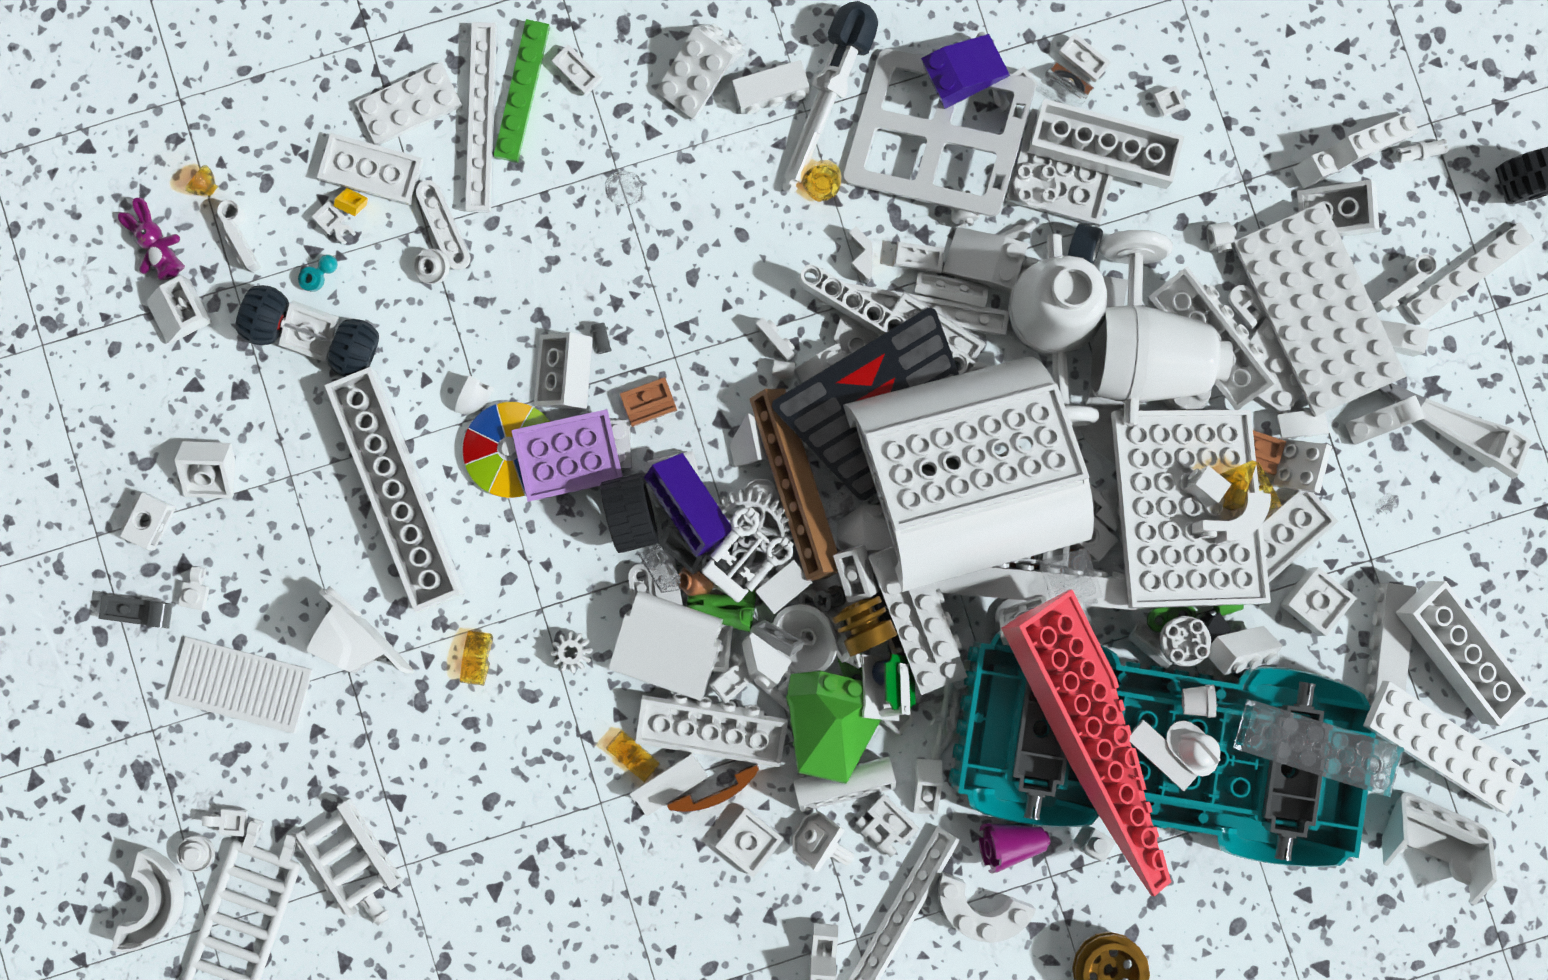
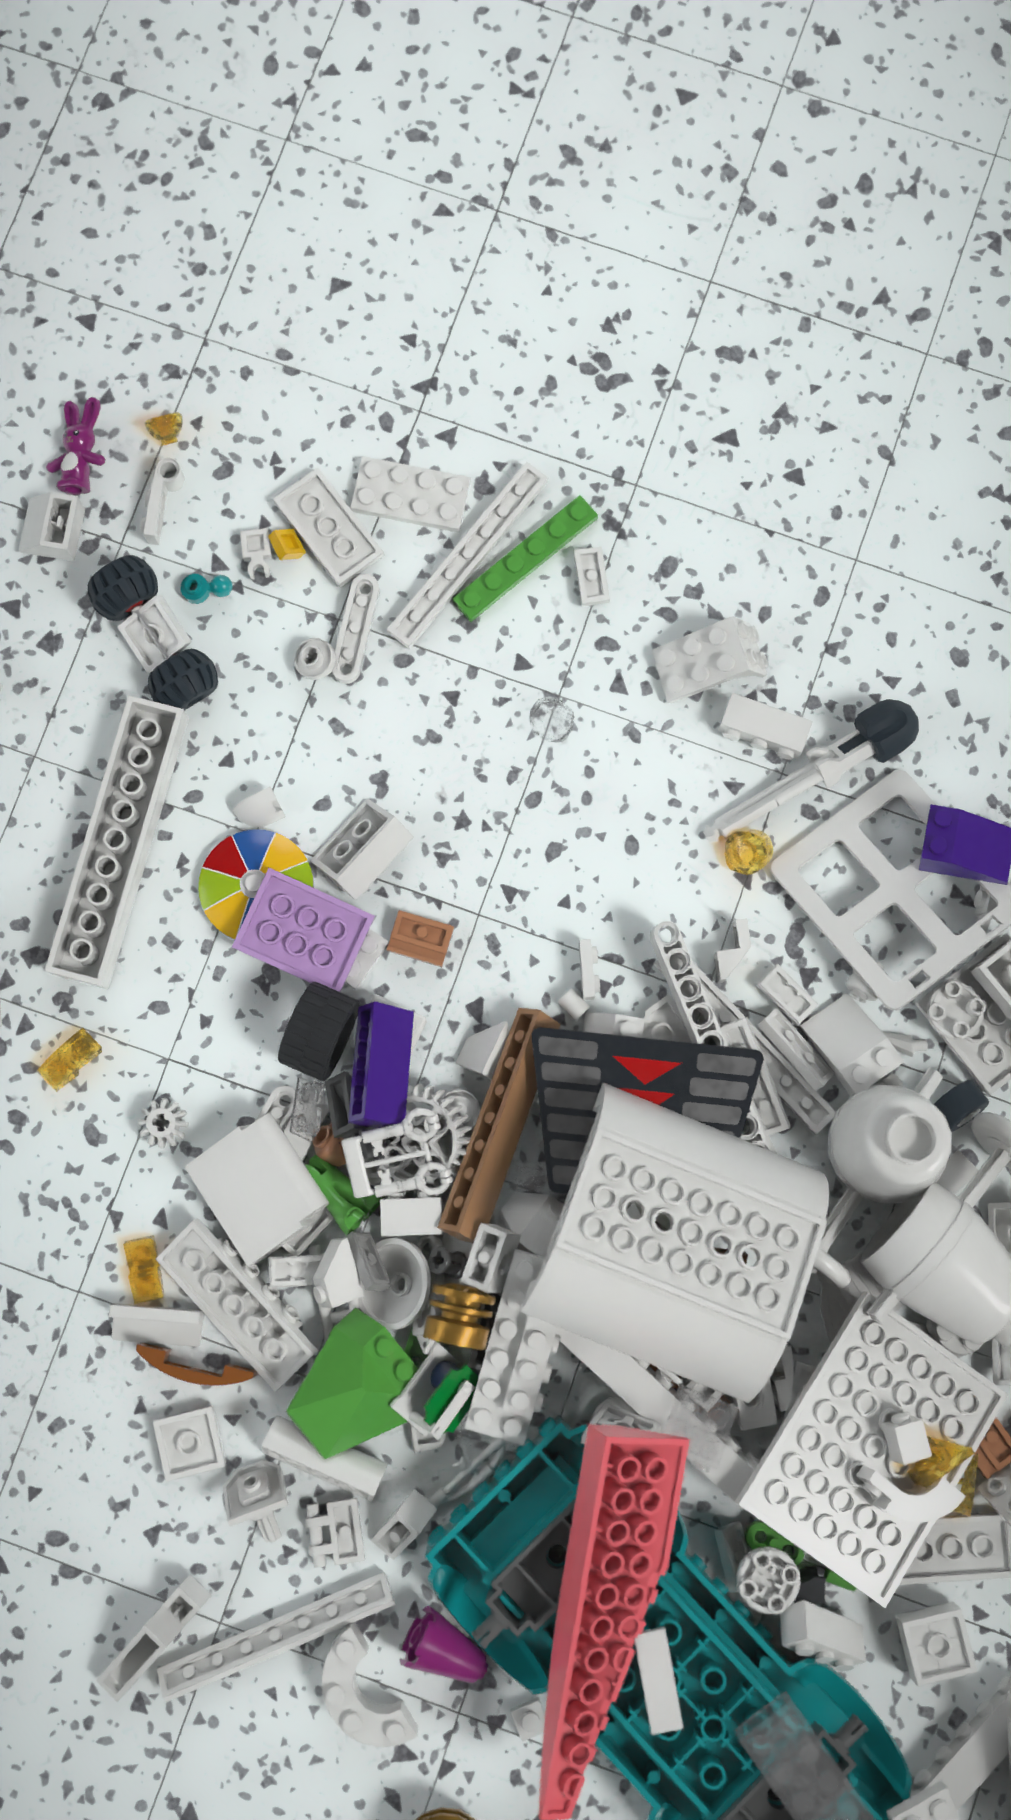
camera: 40 degrees right, 5 degrees down
(600, 338) = (421, 843): dark grey pin -> none
(1193, 748) = (694, 1697): white piece -> none
(1199, 701) = (735, 1654): white piece -> none

